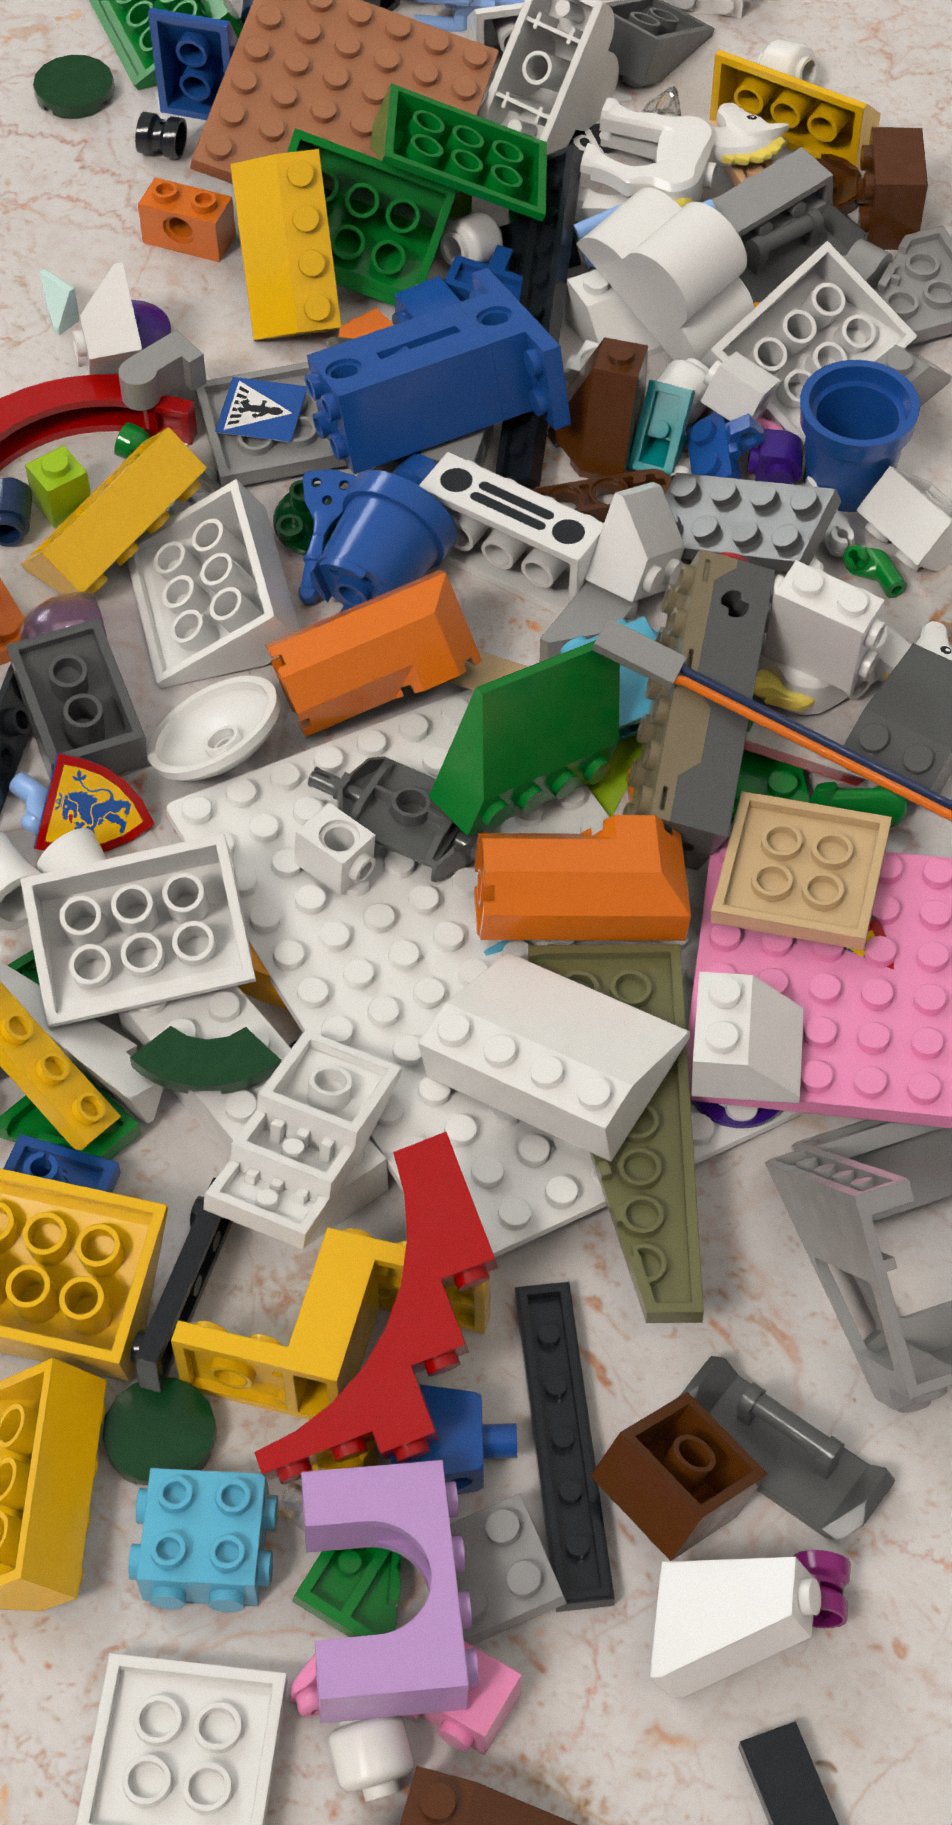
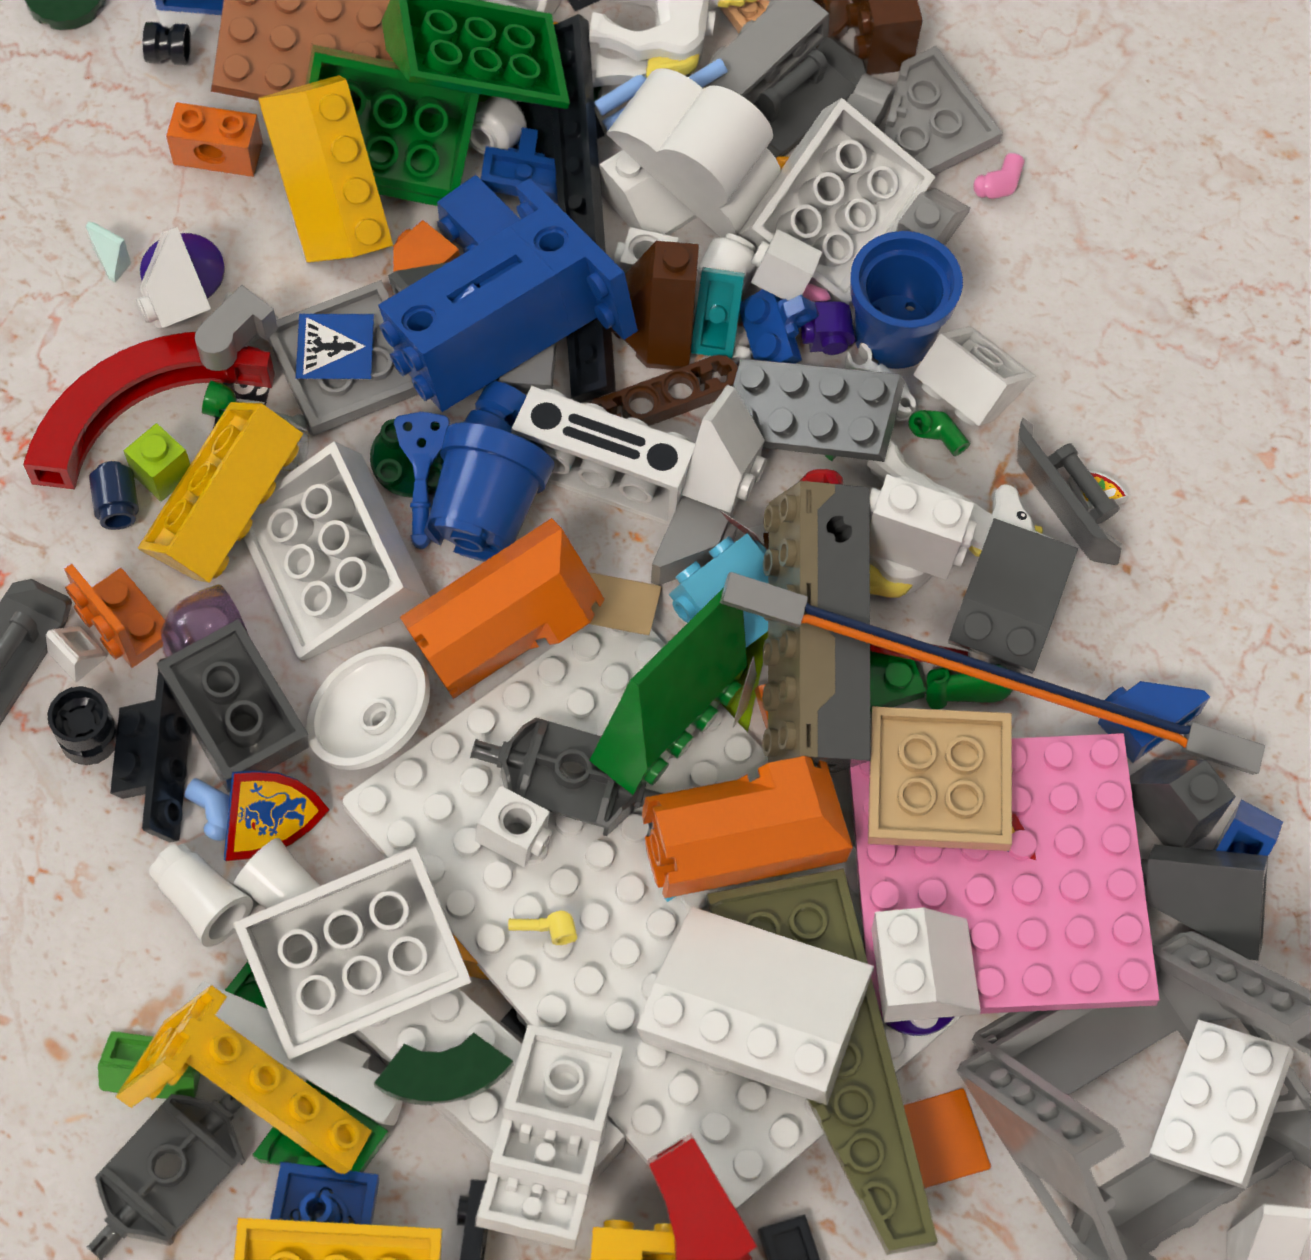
camera: 15 degrees left, 10 degrees up
(362, 948) = (558, 923): none -> light yellow hand
(615, 774) = (746, 693): none -> white sticker
(638, 611) = (742, 528): none -> sticker
(740, 1238) = (946, 1138): none -> orange sticker

